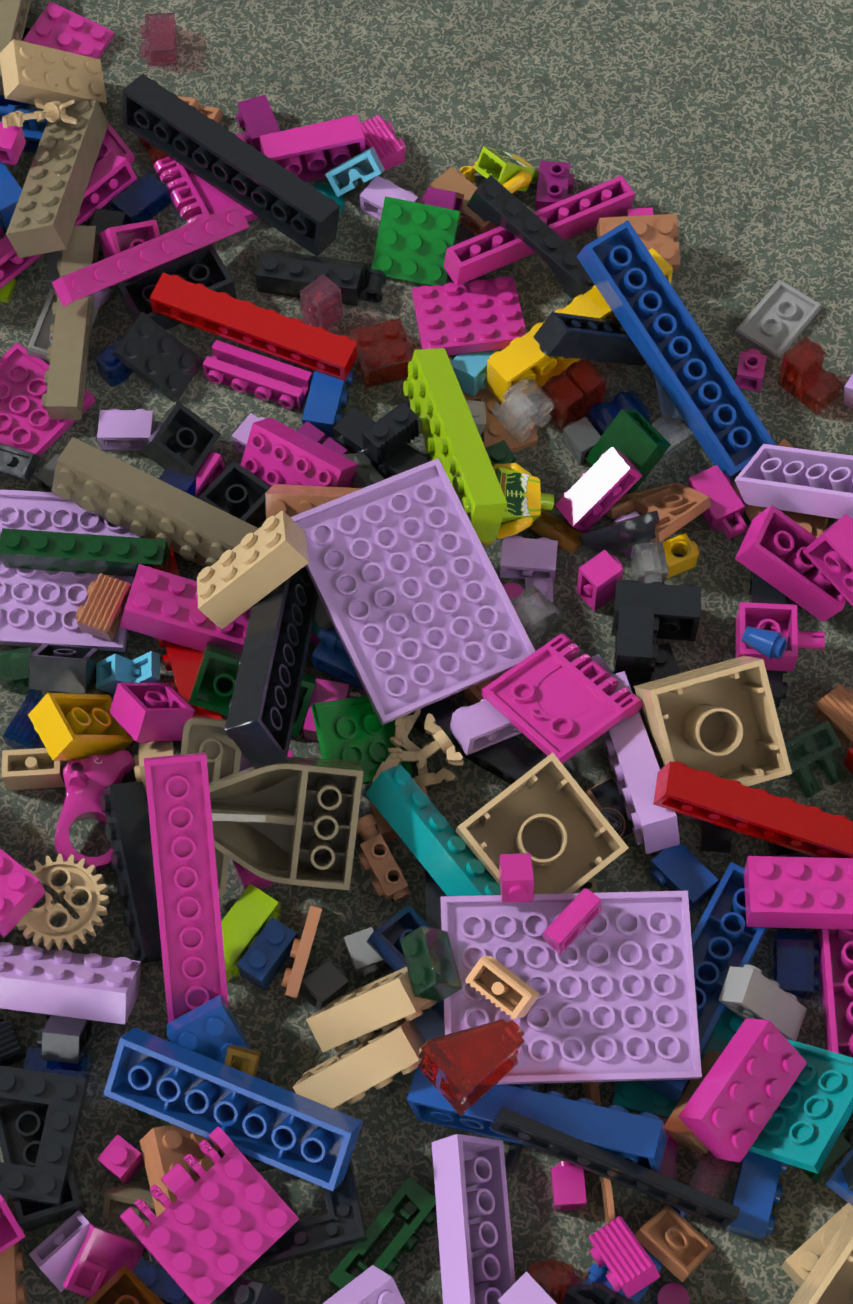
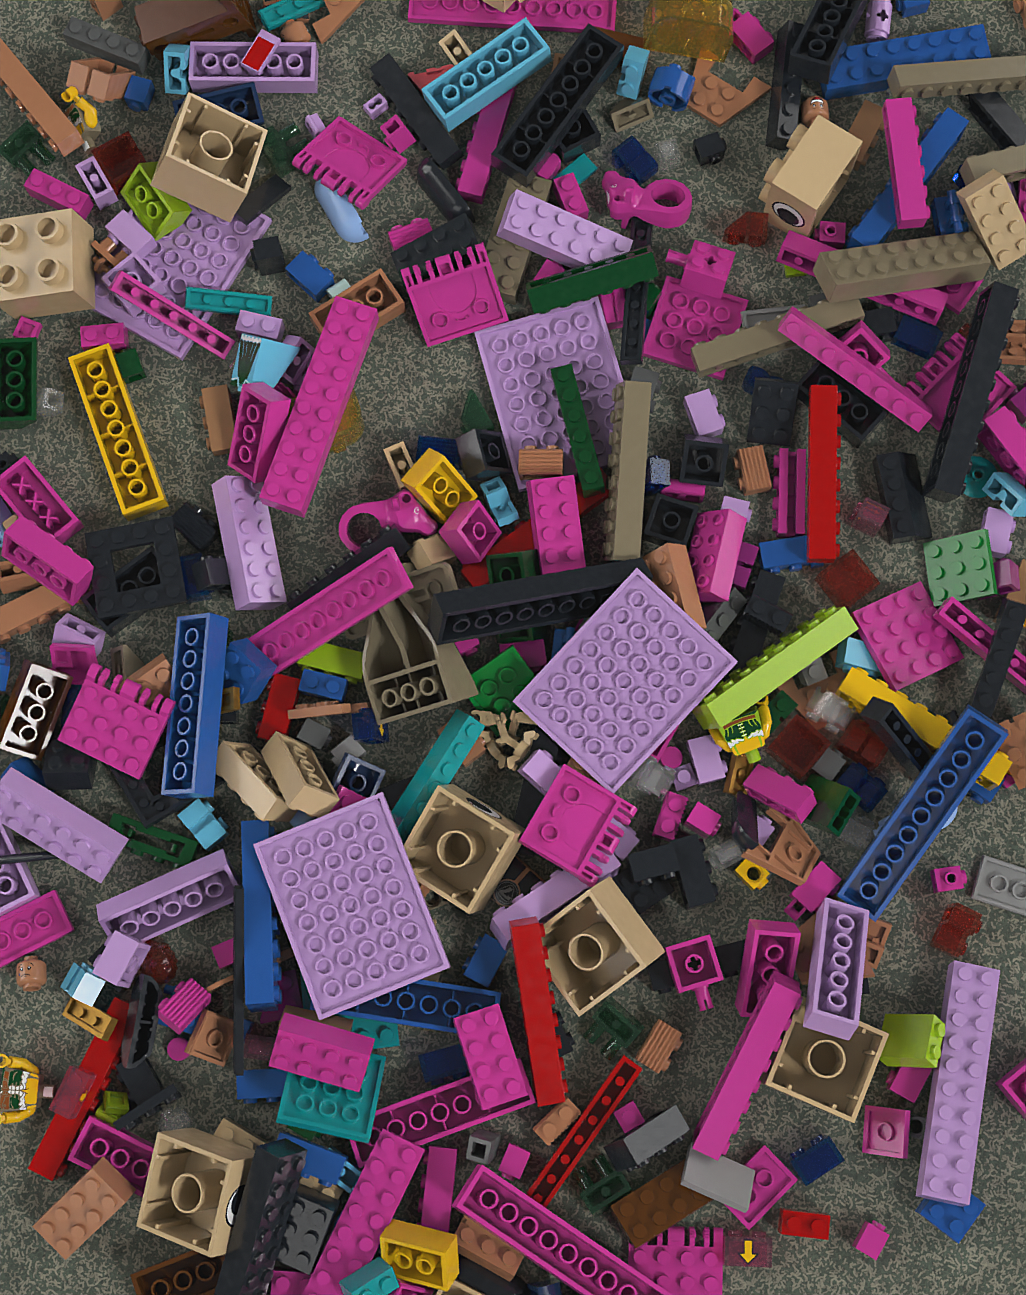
camera: 70 degrees right, 15 degrees up
(52, 111) = (958, 234): tan piece -> none
(79, 883) = (323, 536): tan gear -> none
(121, 1159) = (148, 645): dark pink brick -> none
(215, 402) = (752, 470): none -> nougat brick
(252, 569) = (585, 560): tan brick -> none
(273, 1019) = (281, 698): none -> red brick
(344, 909) = (366, 728): none -> clear blue brick
(373, 285) = (910, 550): black bush -> none
(380, 865) = (413, 740): nougat brick -> none
(387, 1166) = (203, 823): none -> medium azure brick
(431, 964) = (327, 803): clear green brick -> none
(470, 1061) = (253, 855): clear red windscreen -> none
(502, 987) = (324, 858): light nougat brick -> none
(516, 878) = (411, 840): dark pink brick -> none
(552, 457) = (798, 747): none -> clear red piece
(572, 920) = (394, 891): dark pink brick -> none
(583, 616) = (670, 816): none -> dark pink brick
(761, 998) = (399, 1048): light grey brick -> none
(766, 642) = (678, 964): blue cone -> none

